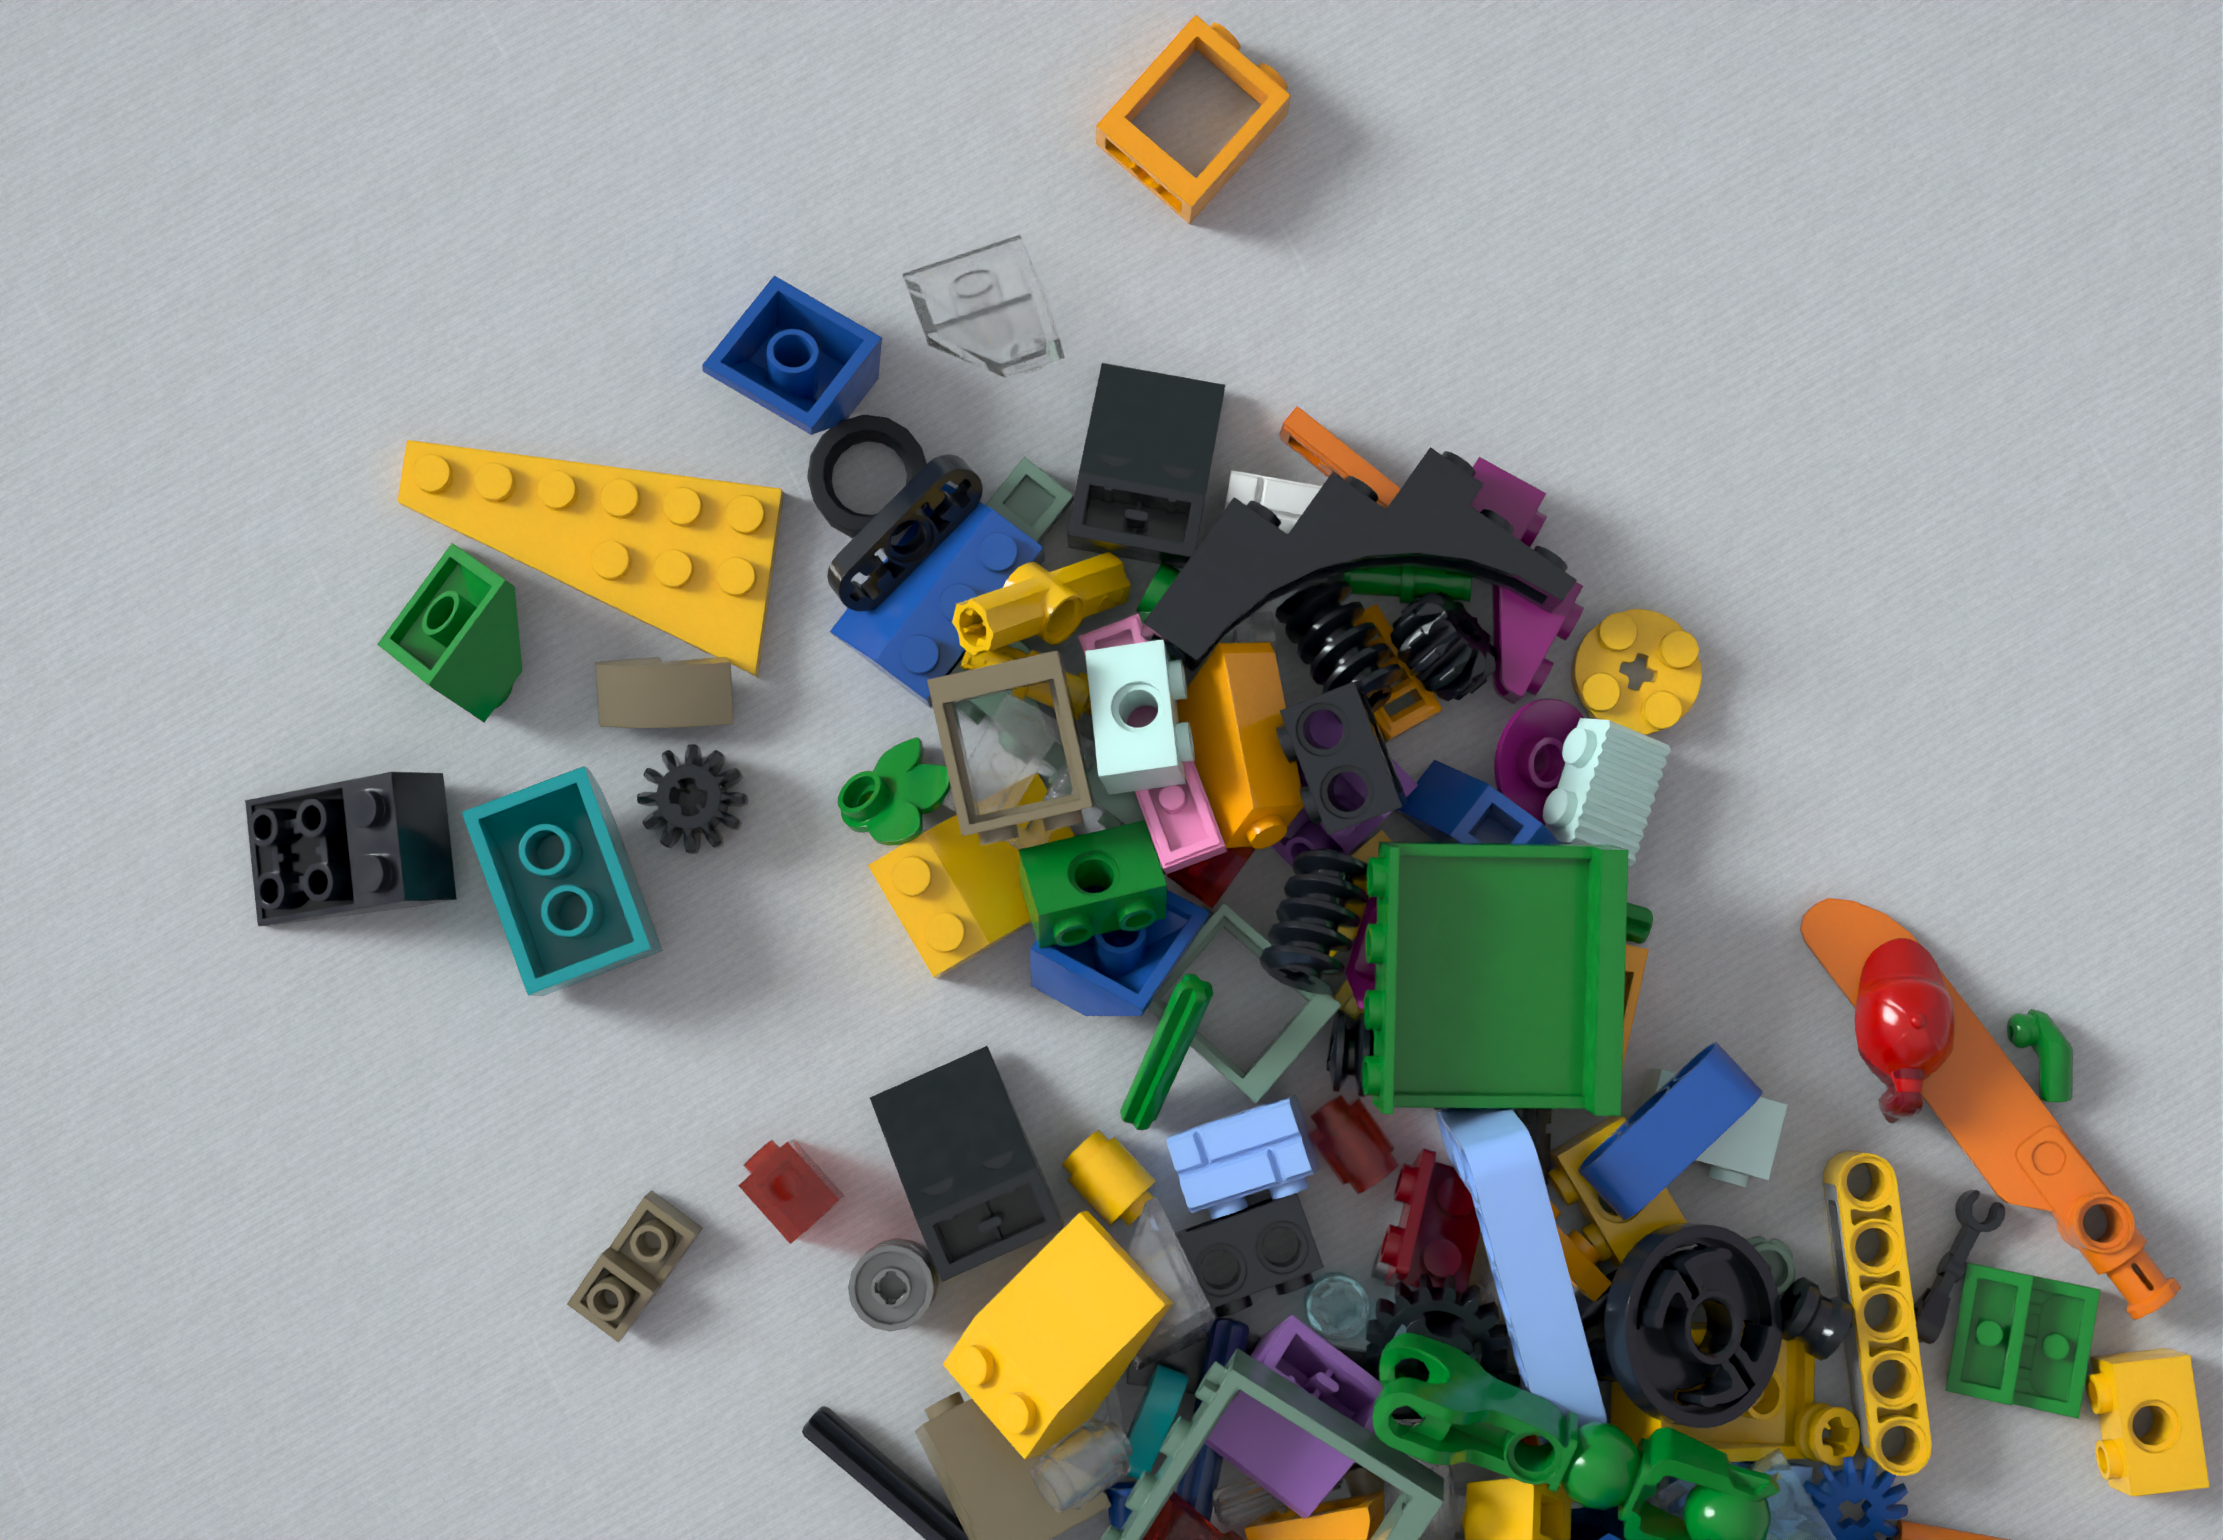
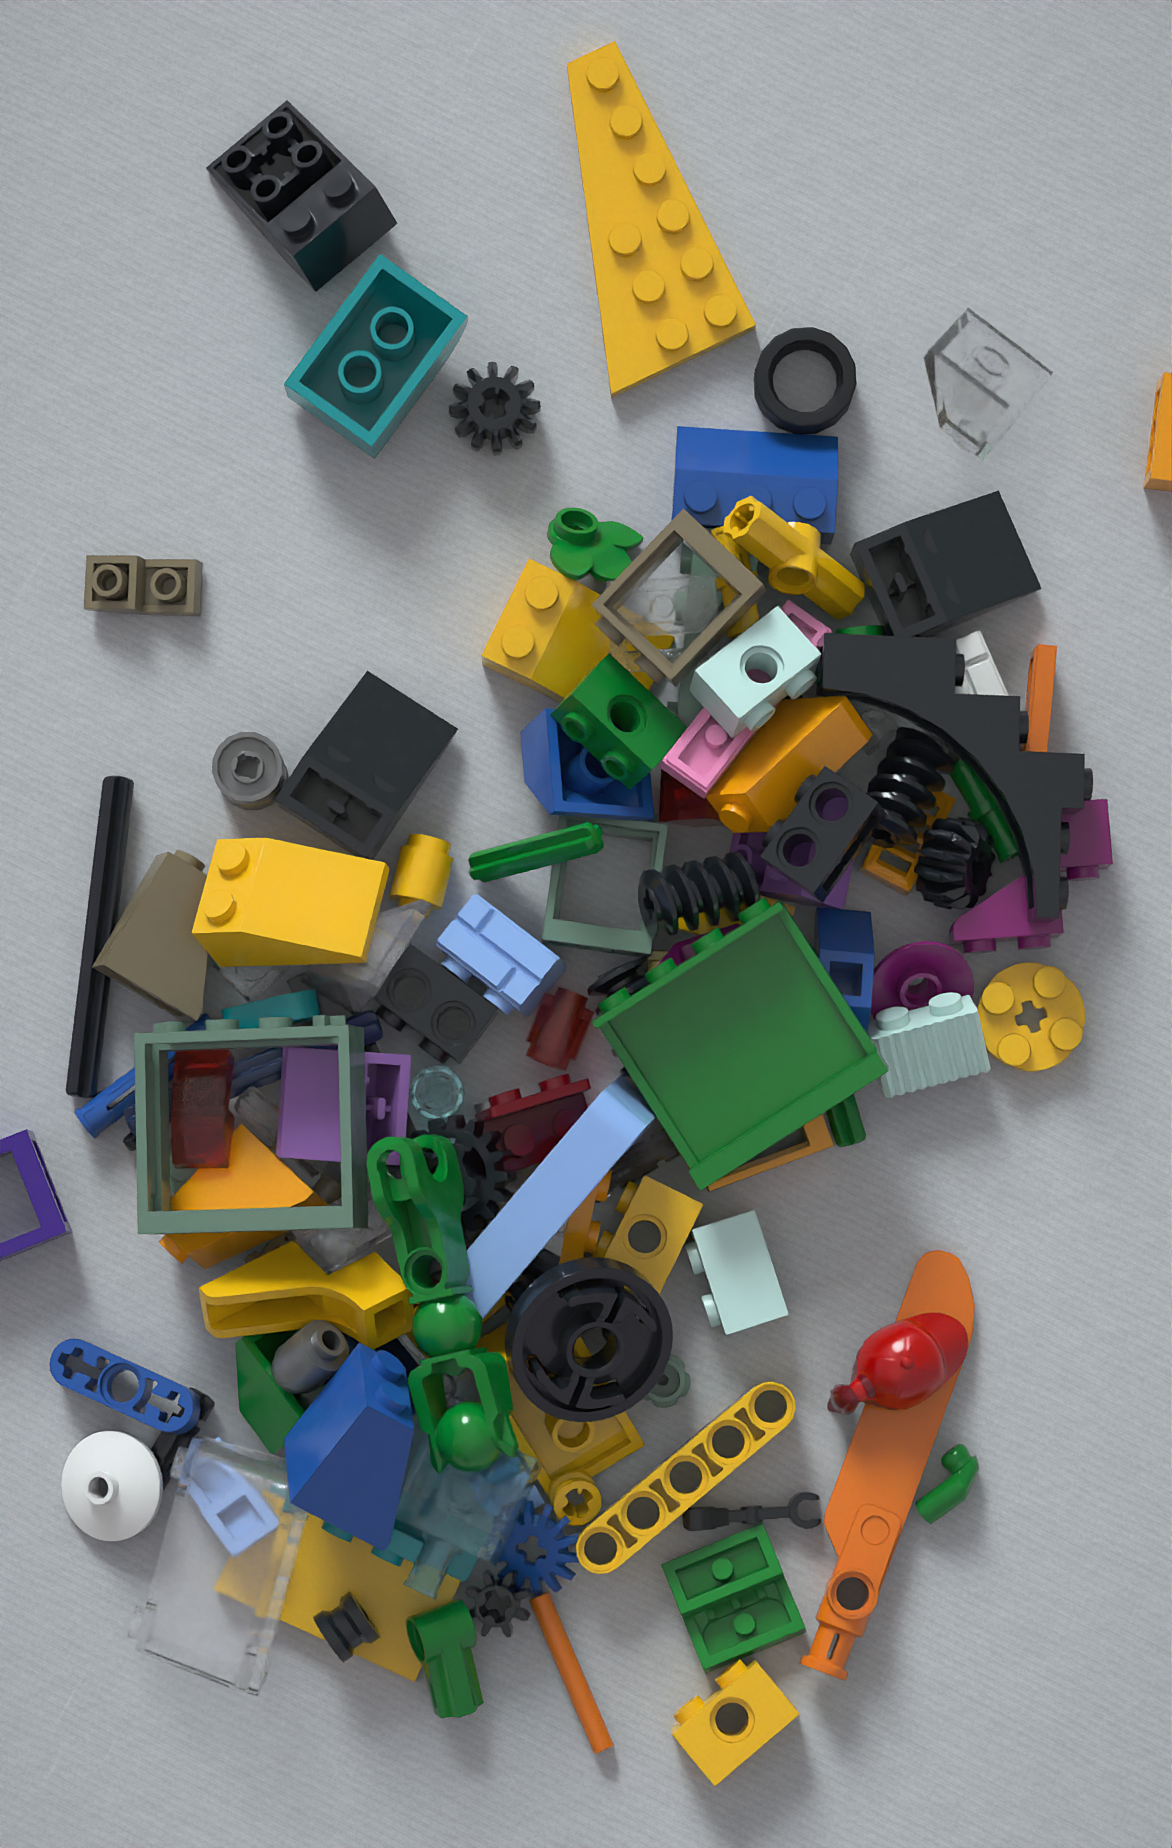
camera: 55 degrees right, 0 degrees up
(460, 634) = (503, 170): green slope -> none
(664, 693) = (555, 339): dark tan slope -> none
(789, 1188) = (267, 656): clear red brick -> none
(797, 358) = (853, 273): blue slope -> none
(905, 506) = (798, 417): black beam -> none
(1031, 500) = (863, 504): sand green plate -> none
(1082, 1465) = (212, 978): clear brick -> none
(1670, 1131) = (713, 1237): blue beam -> none
(1814, 1318) = (649, 1430): black wheel -> none

